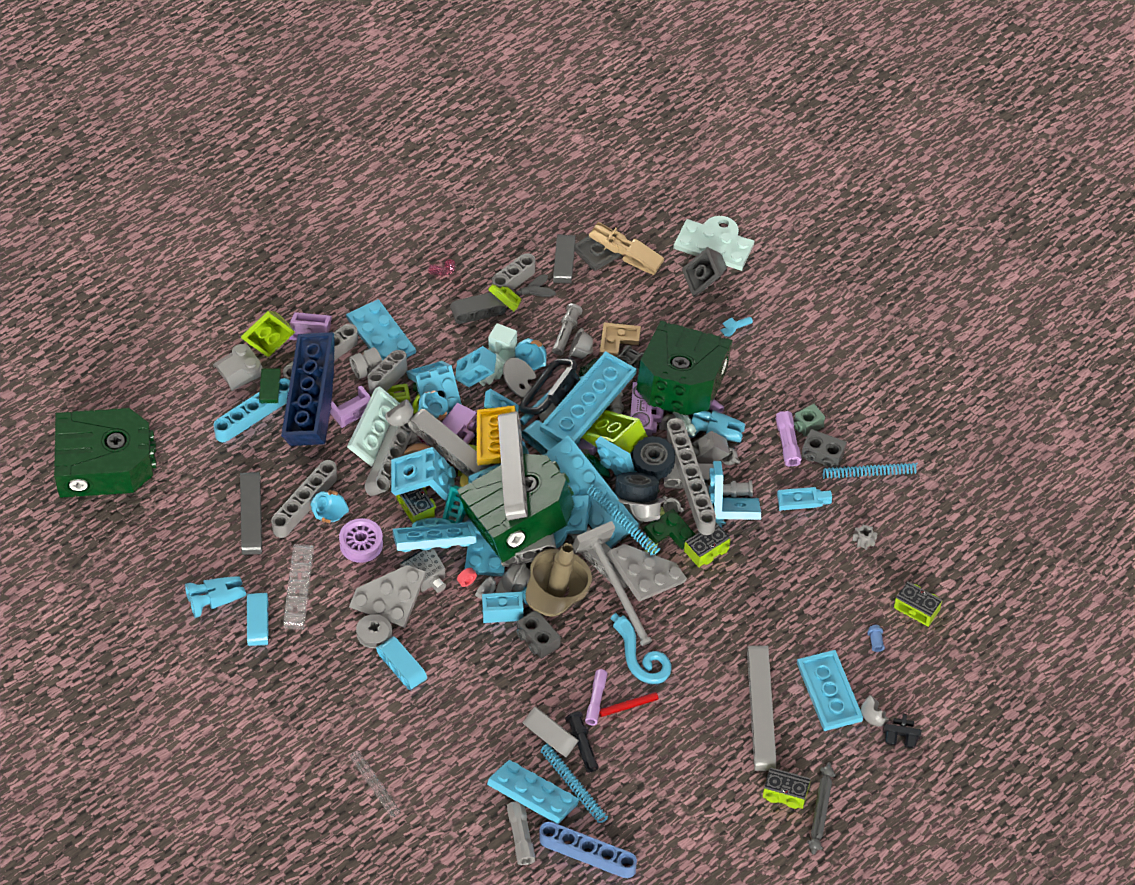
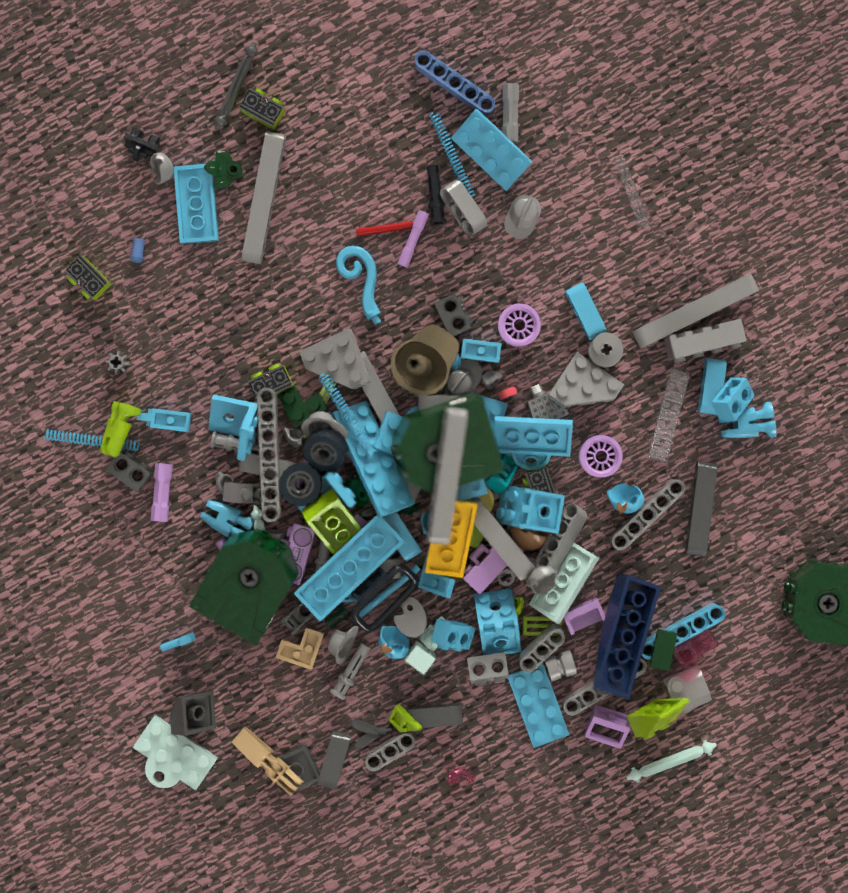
camera: 170 degrees left, 35 degrees up
(236, 604) = (733, 399): none -> medium azure brick
(241, 391) = (692, 649): none -> clear pink brick
(243, 310) = (671, 761): none -> light aqua wheel
(274, 654) = (705, 340): none -> light grey wedge
(285, 683) = (695, 311): none -> light grey beam
(434, 404) = (505, 588): medium azure hair -> none
(437, 352) = (487, 662): none -> light grey brick
(468, 628) = (532, 335): none -> lavender wheel
(486, 742) = (522, 216): none -> light grey piece
(594, 539) = (381, 393): light grey tile -> none
(809, 419) = (128, 512): sand green brick -> none
(813, 724) = (221, 170): none -> dark green plate
(846, 477) = (117, 428): none -> lime piece

